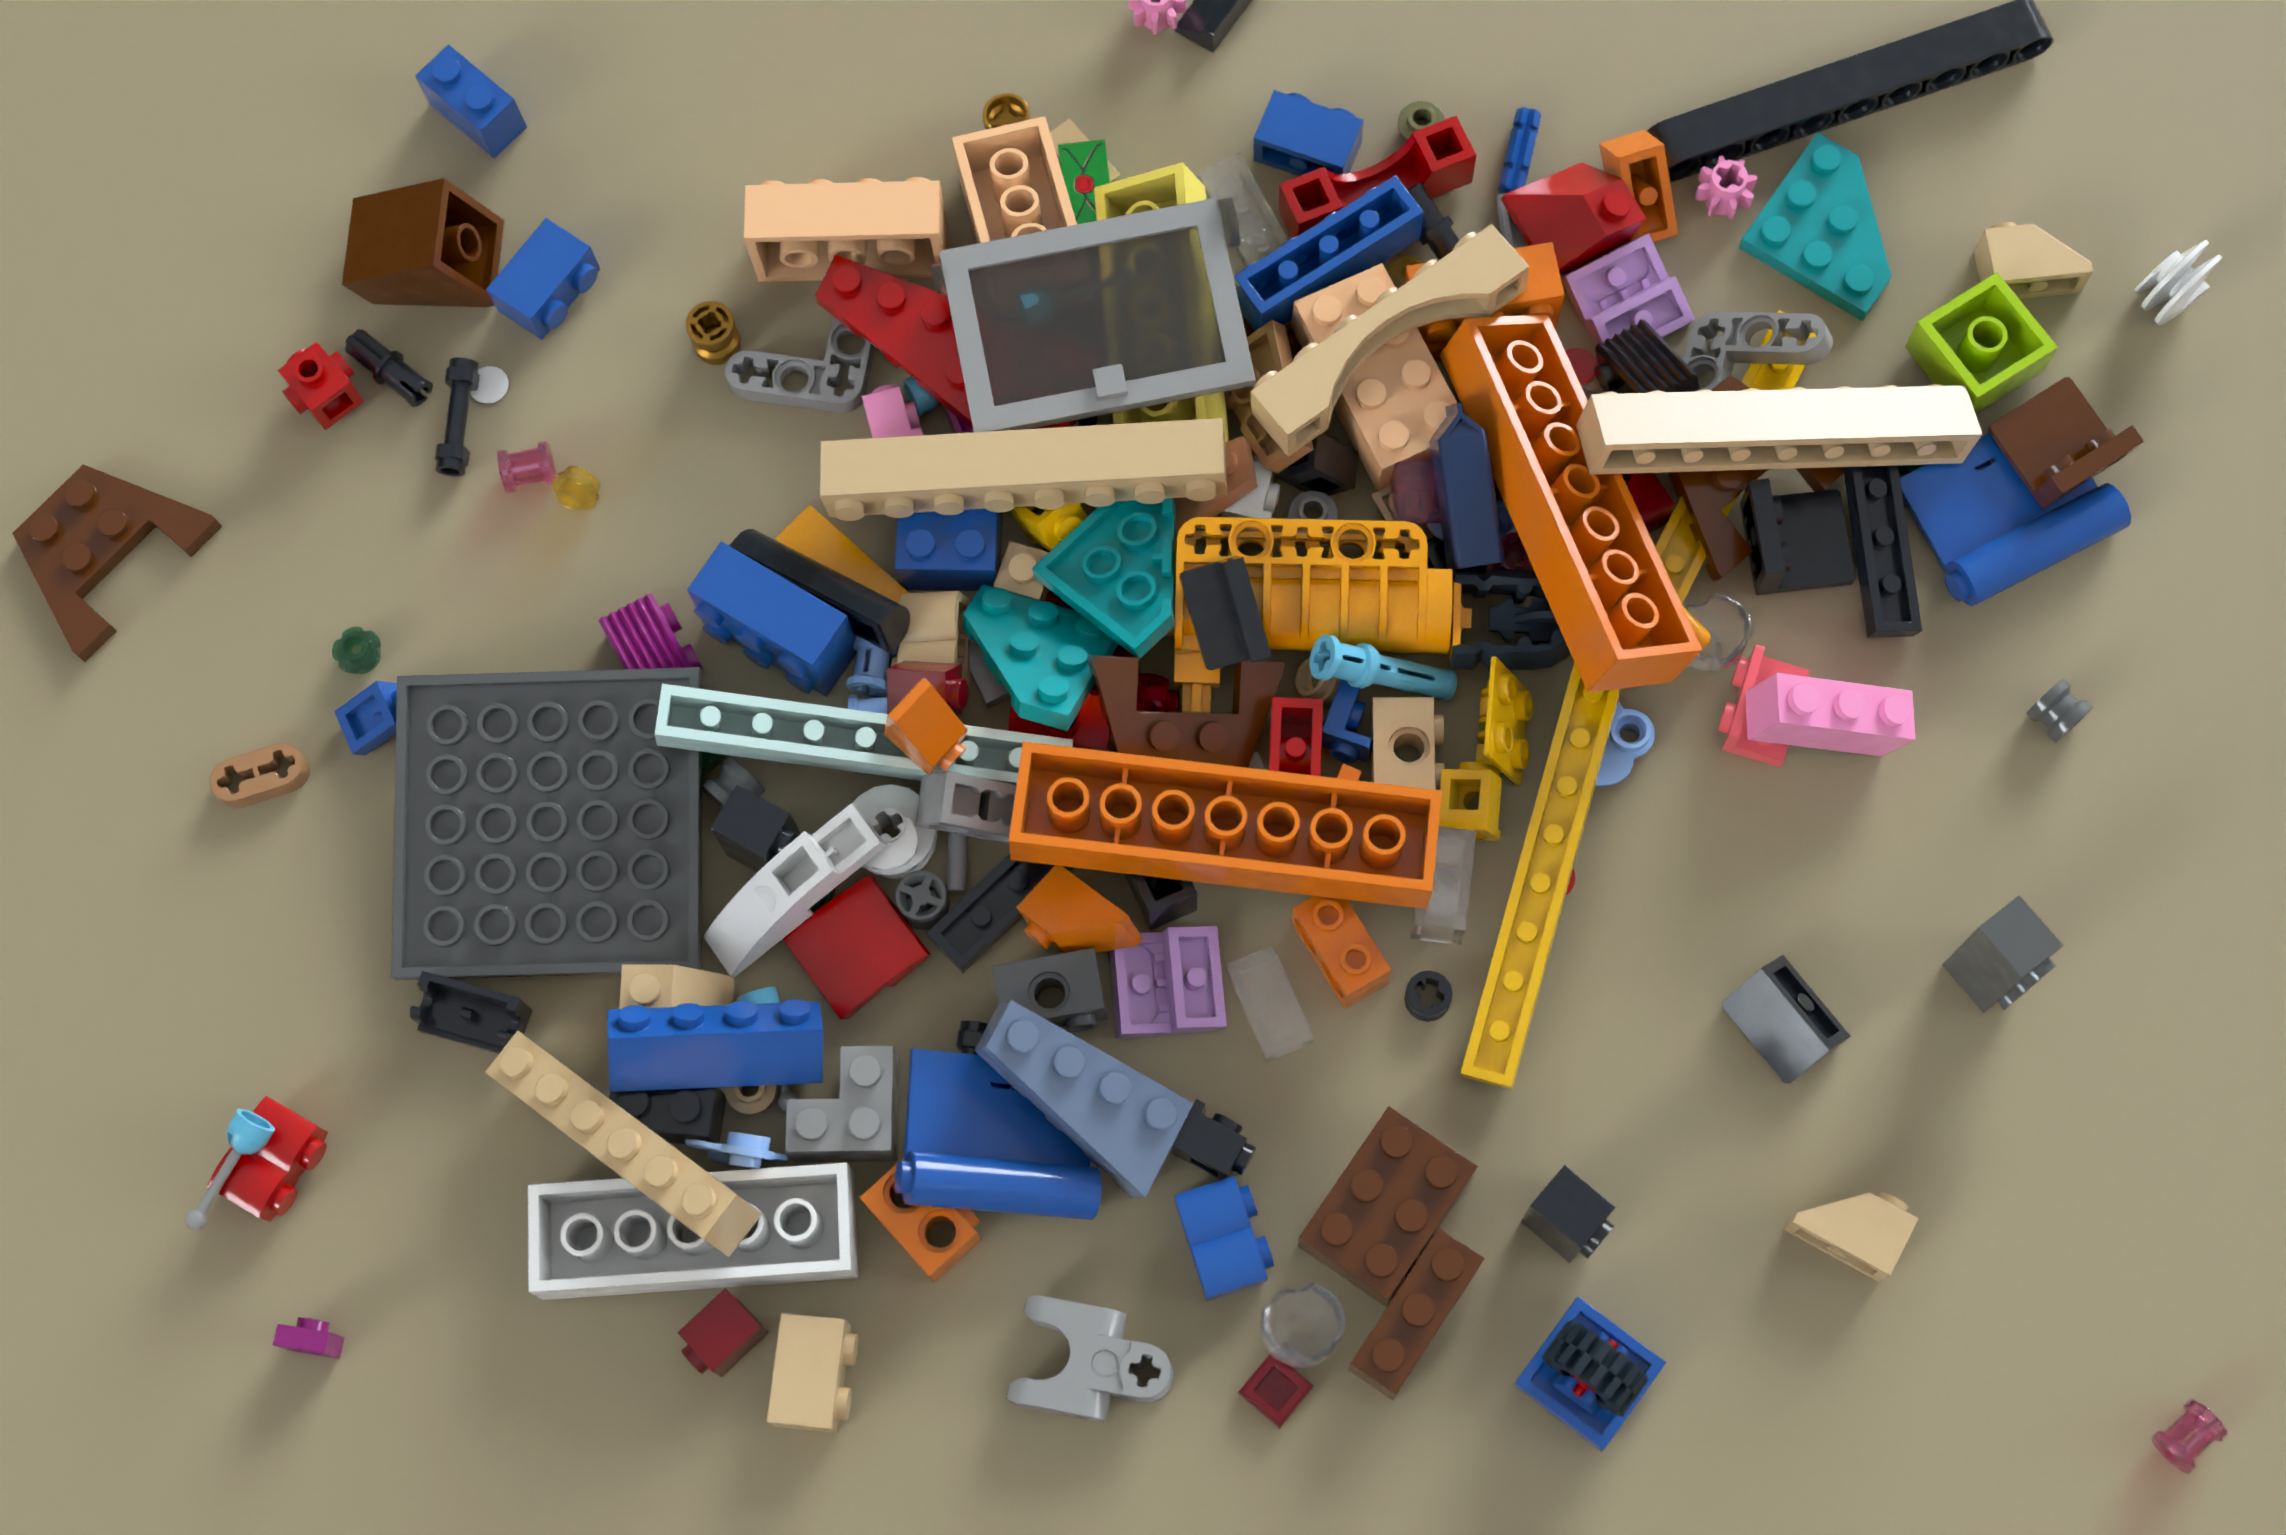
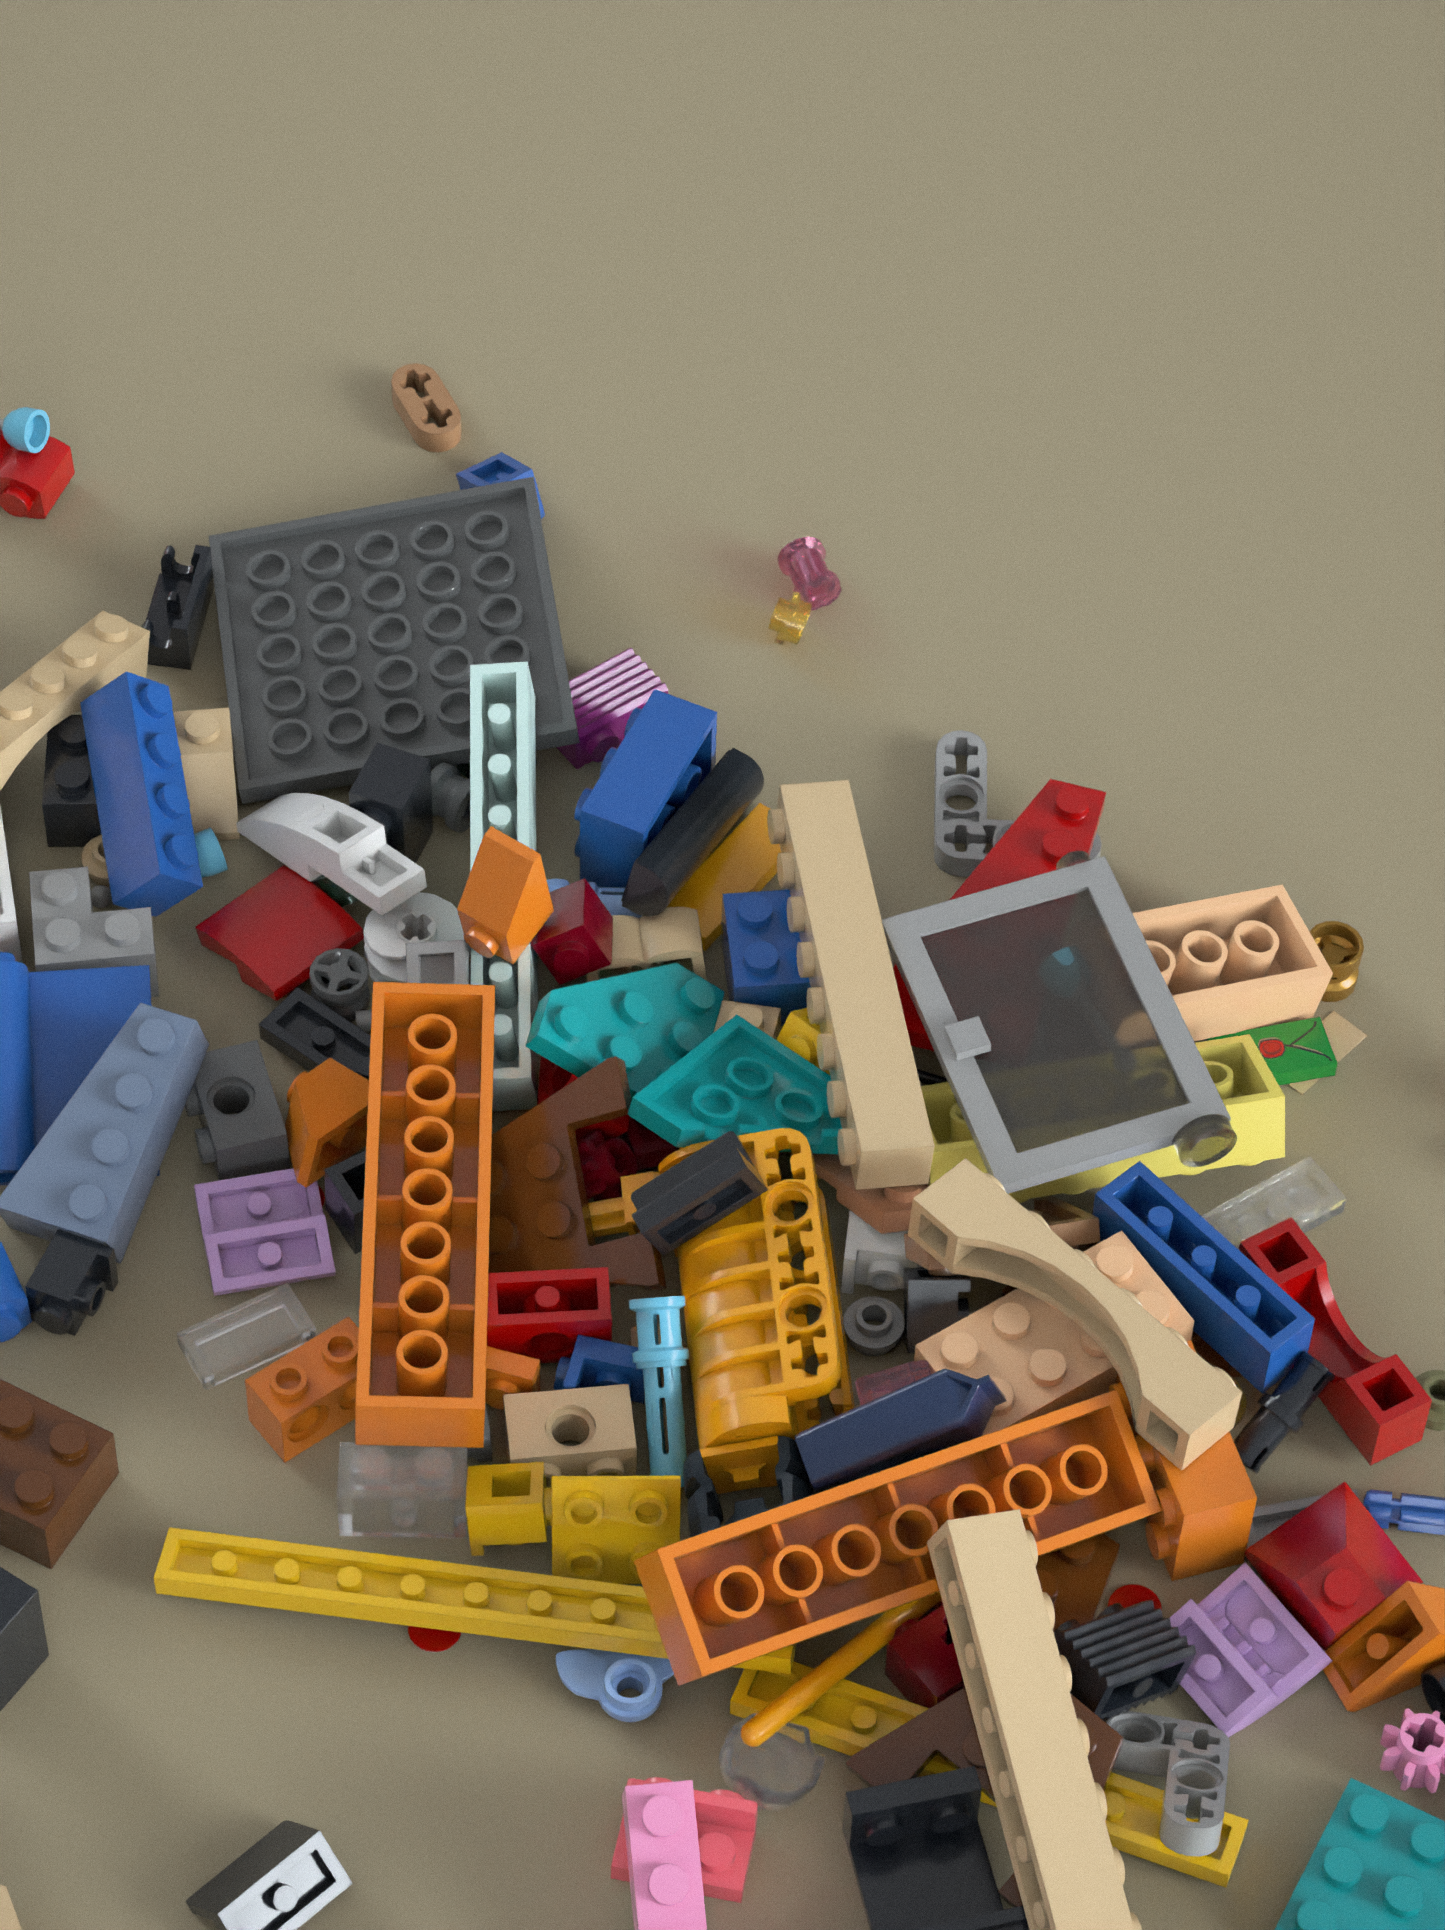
camera: 75 degrees right, 20 degrees down
(87, 533) = (671, 232): reddish brown wing -> none
(320, 385) = (871, 383): red brick -> none
(363, 661) = (575, 466): clear green plate -> none
(388, 367) = (907, 444): black axle -> none
(422, 247) = (1053, 450): reddish brown slope -> none
(452, 455) = (908, 506): black bar -> none
(471, 101) = (1244, 464): blue brick -> none
(492, 385) = (910, 537): white sticker -> none
(544, 279) = (1039, 557): blue brick -> none
(718, 342) = (1002, 713): pearl gold wheel -> none
(740, 1150) = (28, 833): light blue plate -> none
(883, 225) = (1148, 808): light nougat brick -> none
(889, 414) = (914, 882): bright pink brick -> none
(1306, 136) = (1384, 1271): blue brick -> none
(1443, 992) = (257, 1485): black bush -> none

